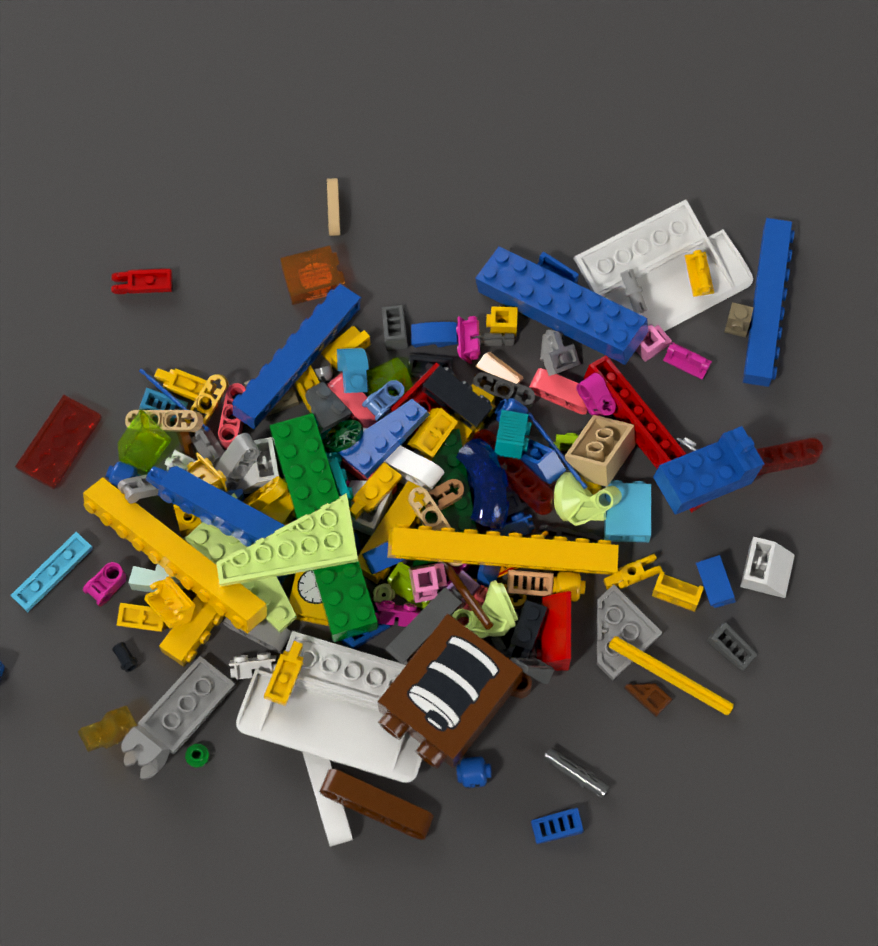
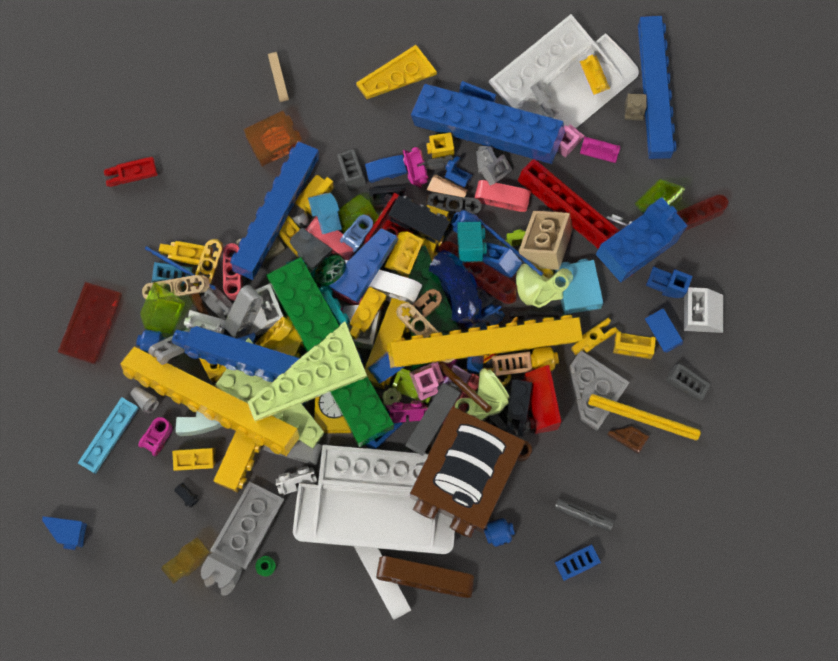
camera: 10 degrees left, 5 degrees up
(102, 541) = (145, 400): none -> light grey cone
(170, 603) = (215, 443): yellow hinge -> none
(204, 468) = (218, 322): yellow hinge -> none
(285, 675) = (325, 484): yellow hinge -> none
(473, 228) = (401, 71): none -> yellow wing
(514, 357) = (457, 175): none -> blue bracket
(535, 669) = (533, 436): dark grey slope -> none
(595, 394) = (531, 193): dark pink piece -> none
(735, 530) = (671, 284): none -> blue brick
(755, 425) = (661, 189): none -> clear neon green slope

